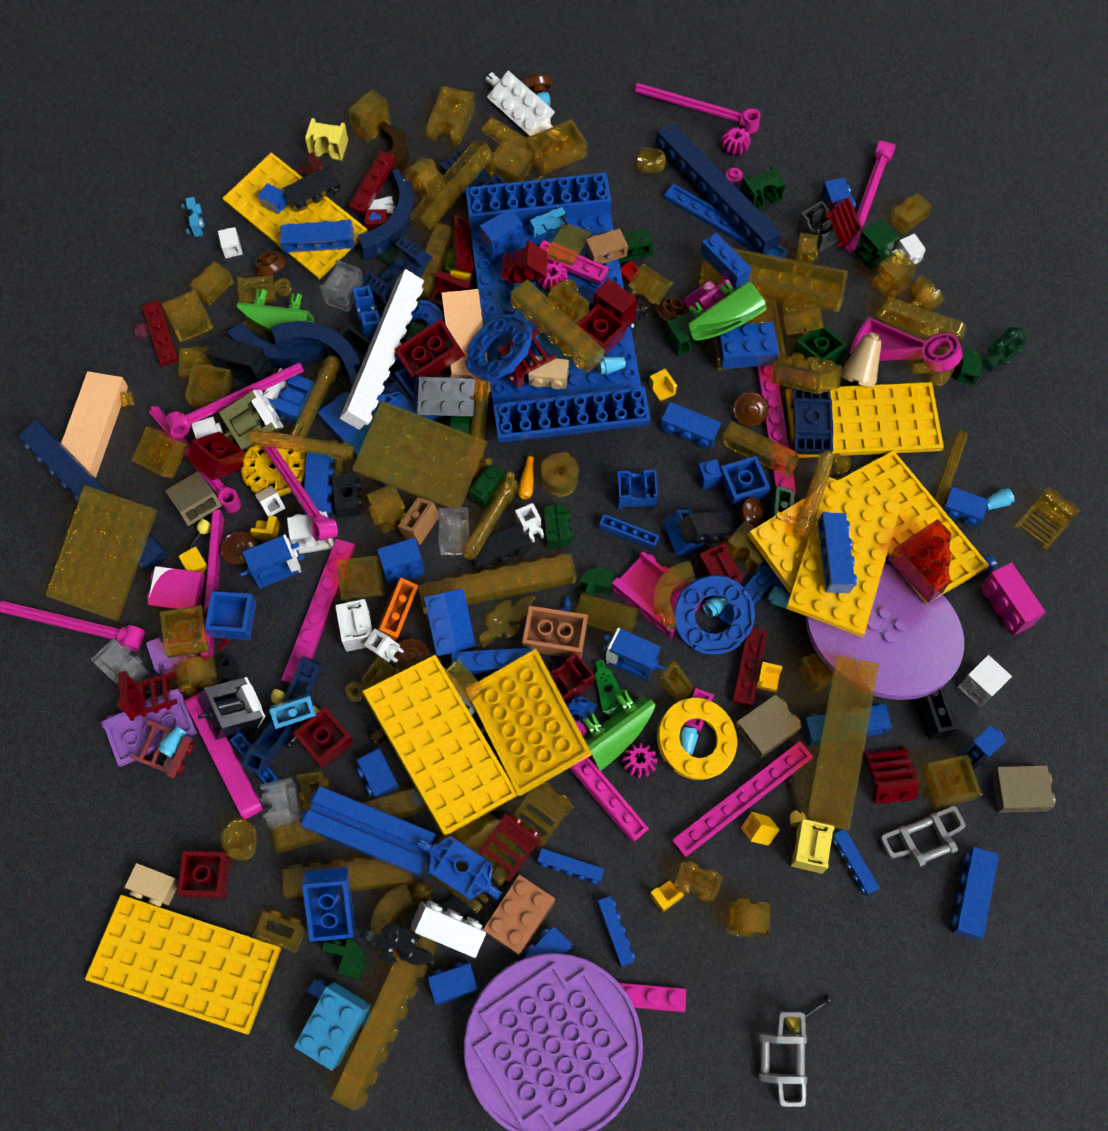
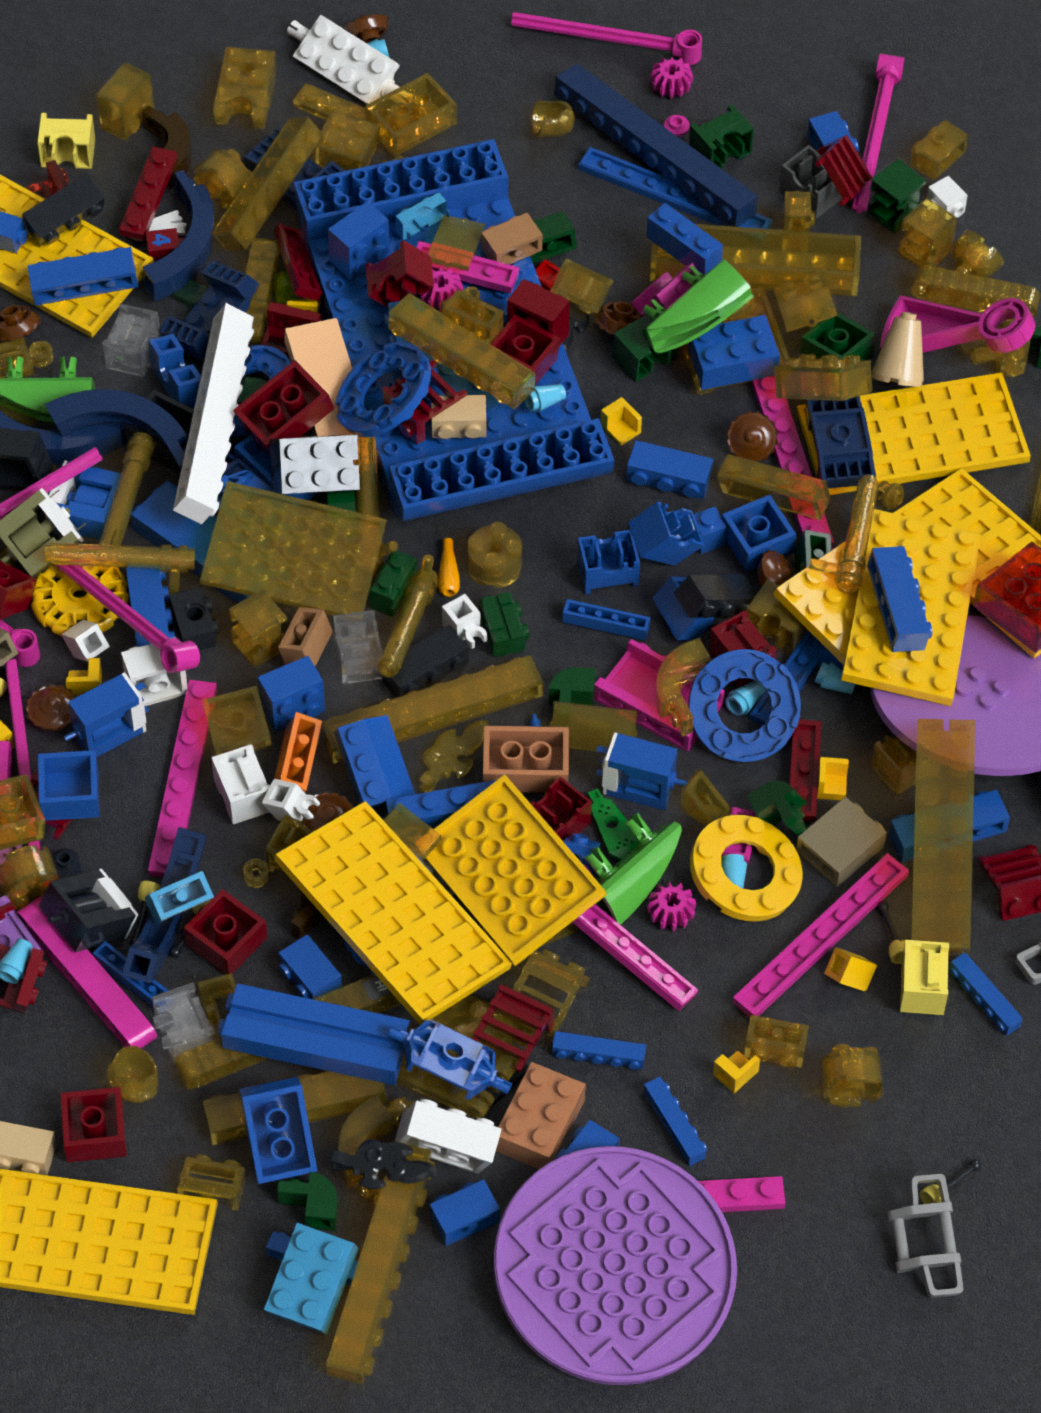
camera: 10 degrees left, 10 degrees down
(679, 476) = (666, 535): none -> blue piece
(727, 691) = (779, 802): none -> dark green brick

